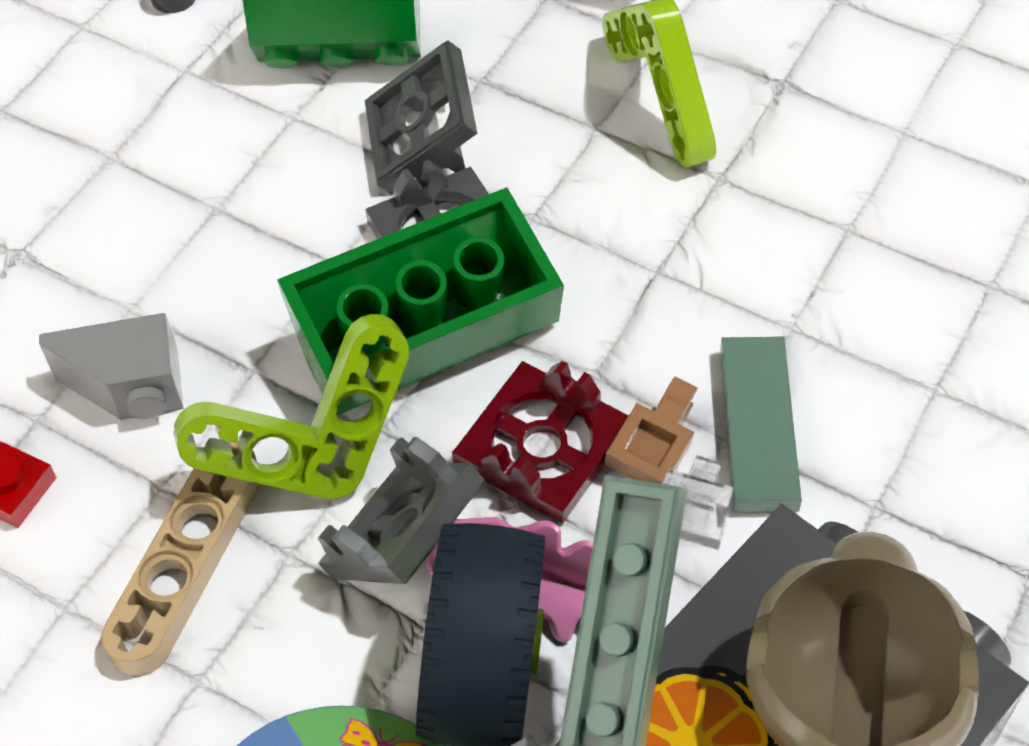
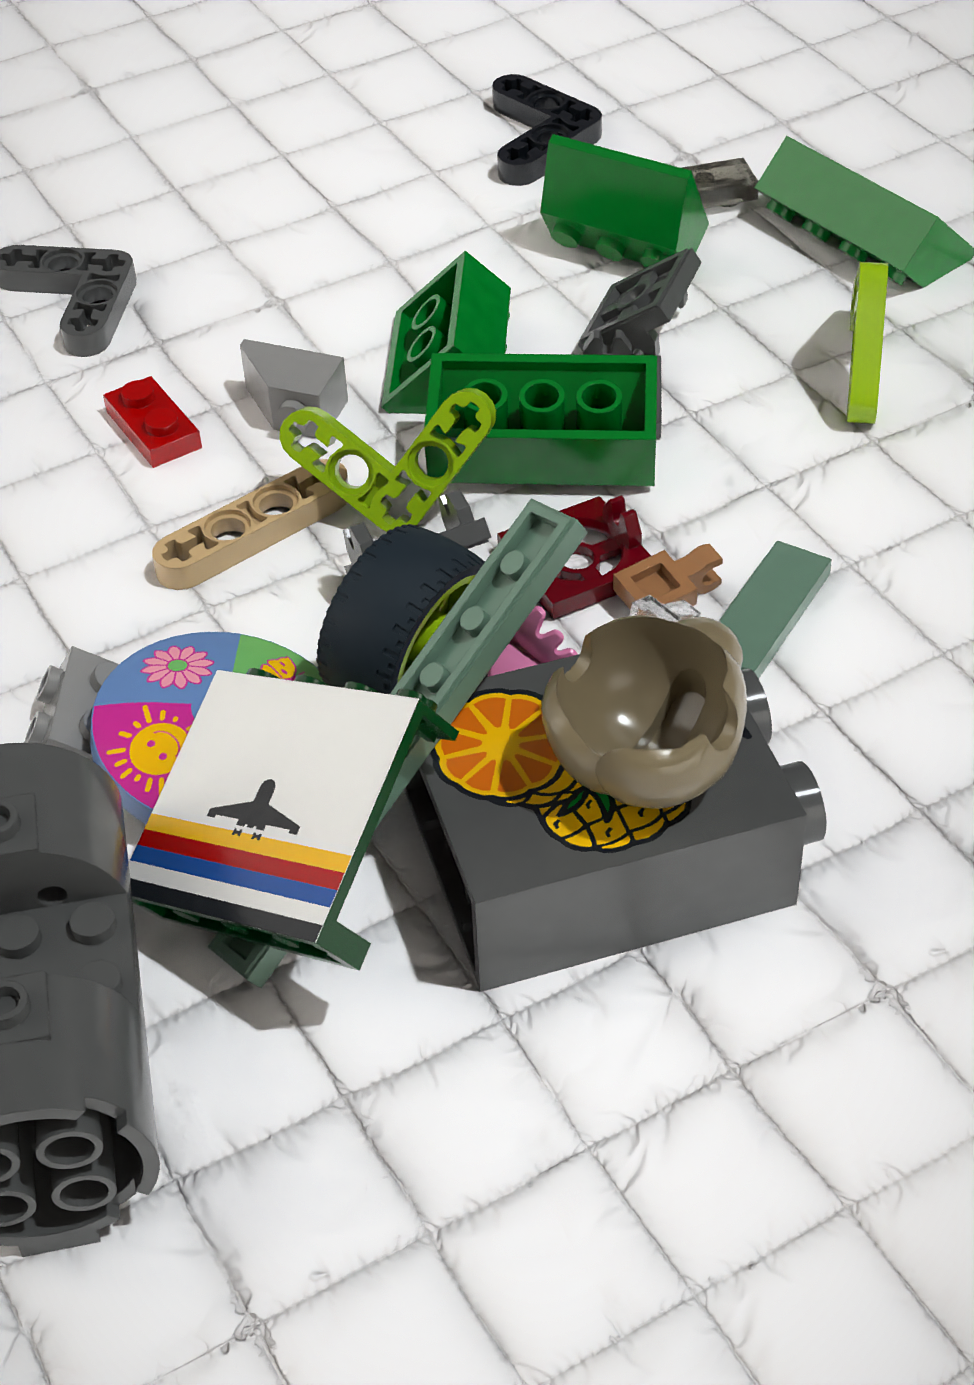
camera: 30 degrees right, 10 degrees down
(238, 232) = (453, 313): none -> green slope

